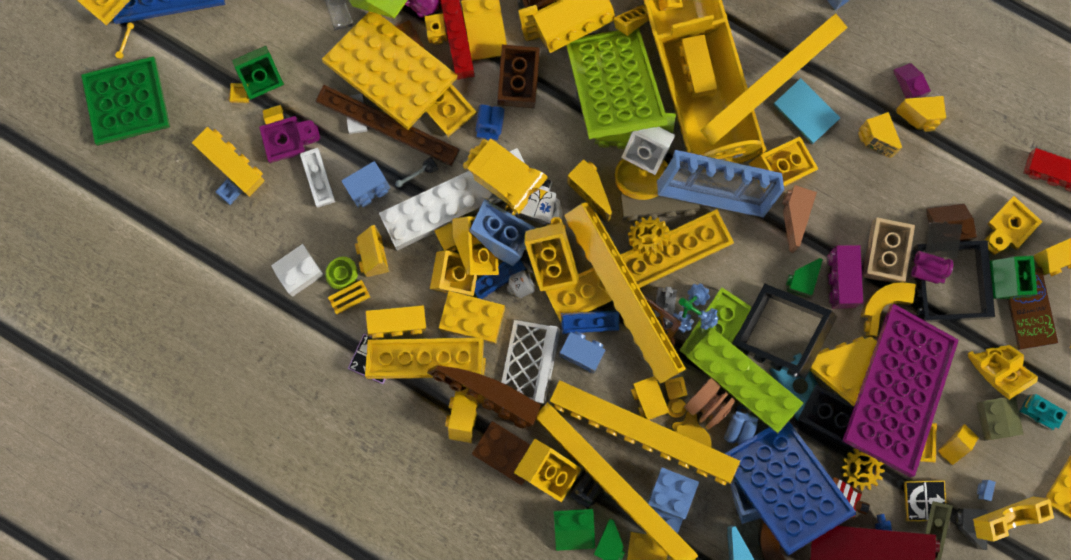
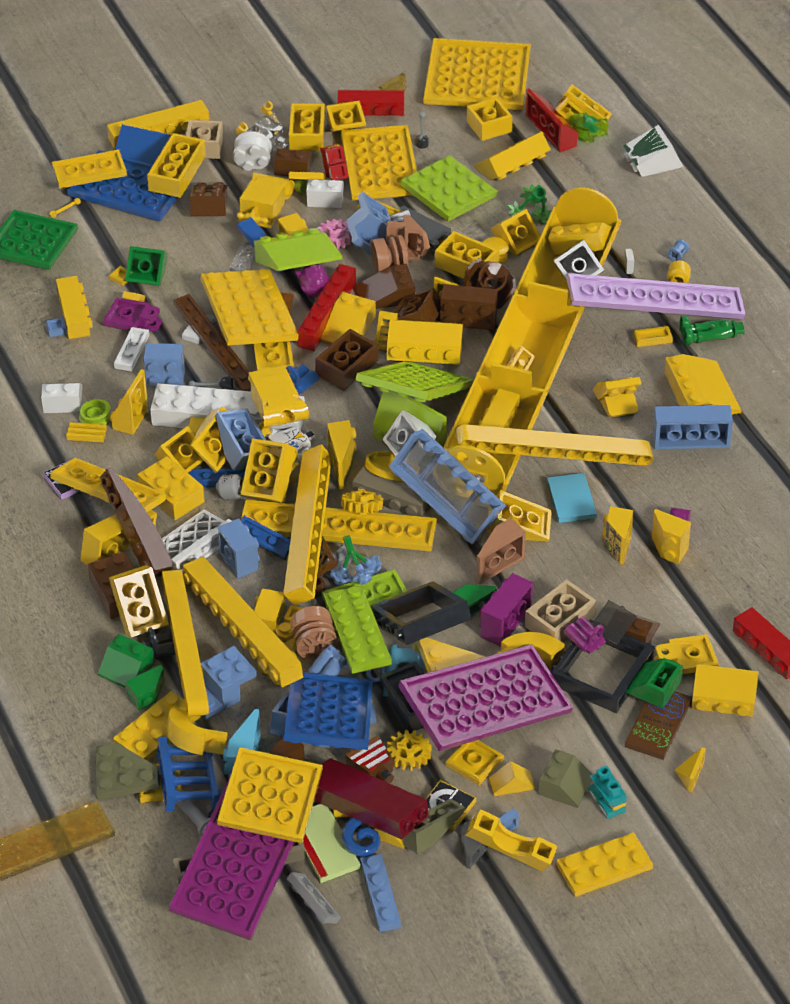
camera: 30 degrees right, 35 degrees down
(395, 321) = (108, 456): yellow brick -> none
(436, 29) = (306, 302): yellow brick -> none
(629, 22) = (466, 369): yellow slope -> none
(1004, 370) = (597, 748): yellow slope -> none

